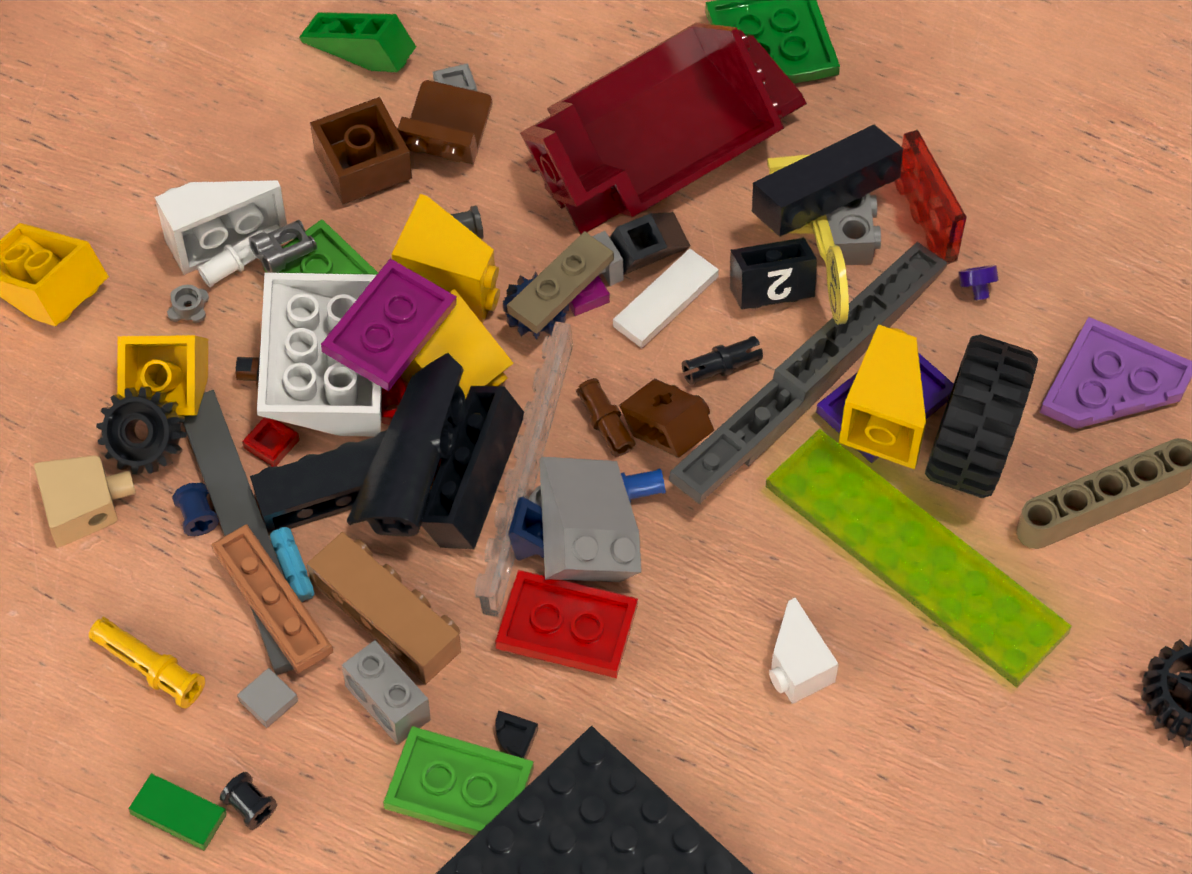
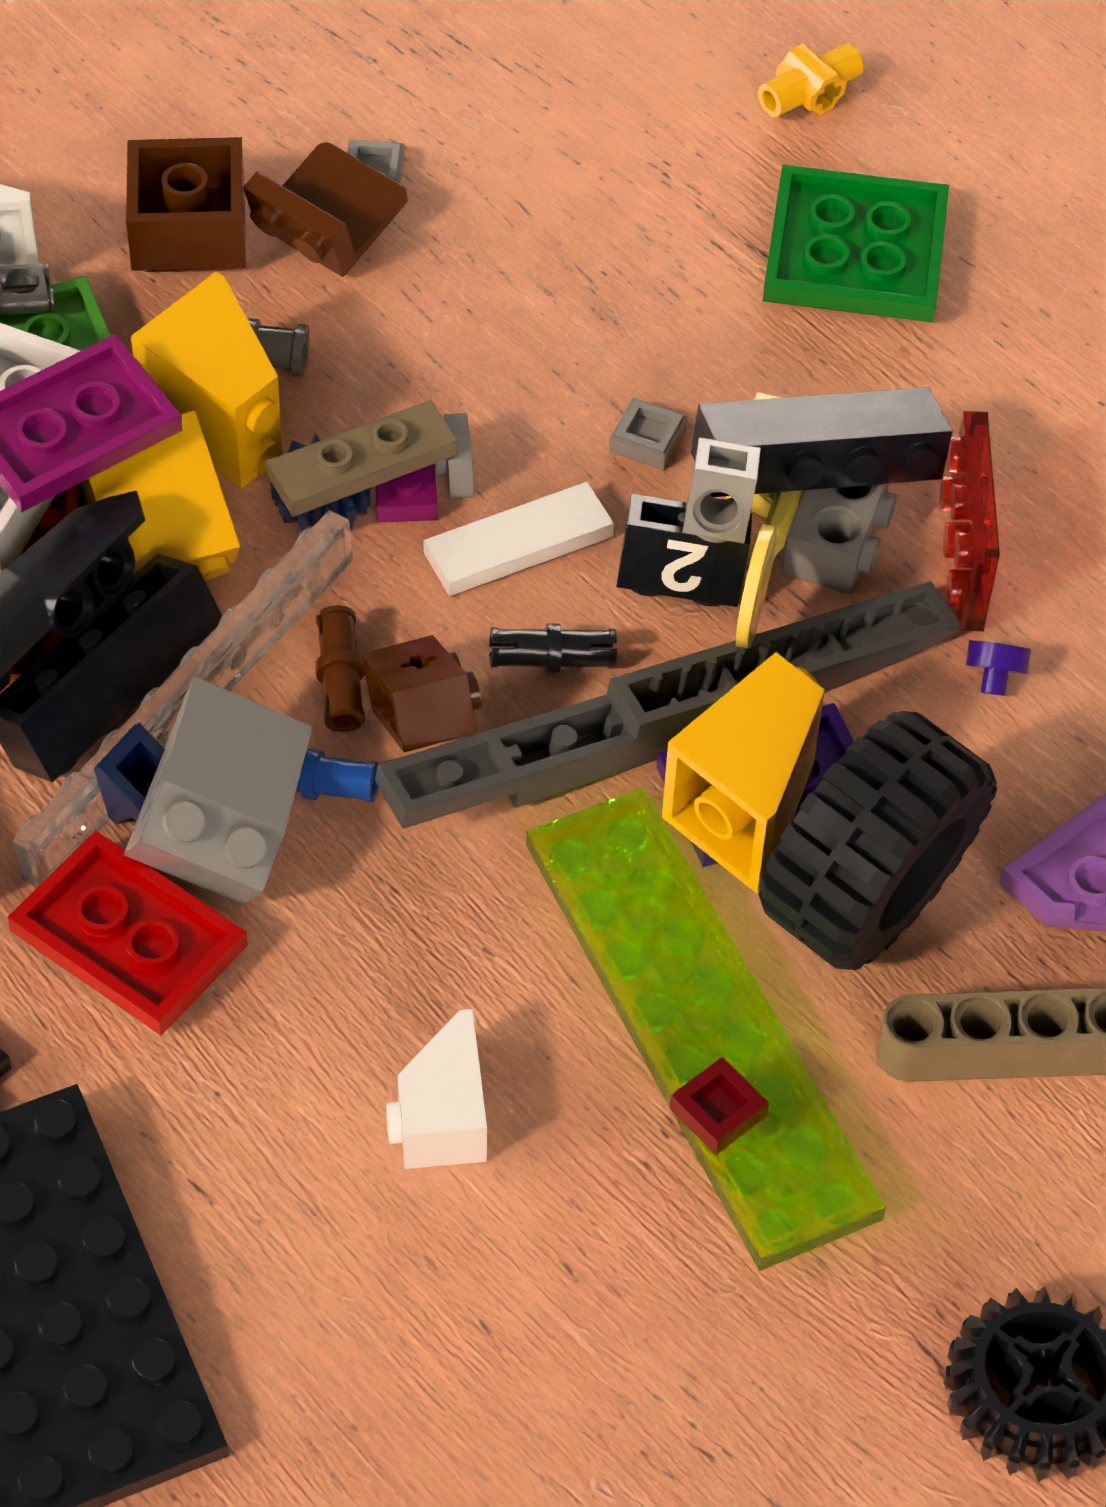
camera: 20 degrees right, 5 degrees down
(363, 39) = (274, 68): green slope -> none
(648, 240) = (528, 448): black slope -> none
(659, 123) = (626, 297): dark red panel -> none
(708, 204) = (648, 433): none -> light grey tile
(793, 233) = (722, 469): none -> light grey brick
(959, 602) = (719, 1105): none -> dark red plate

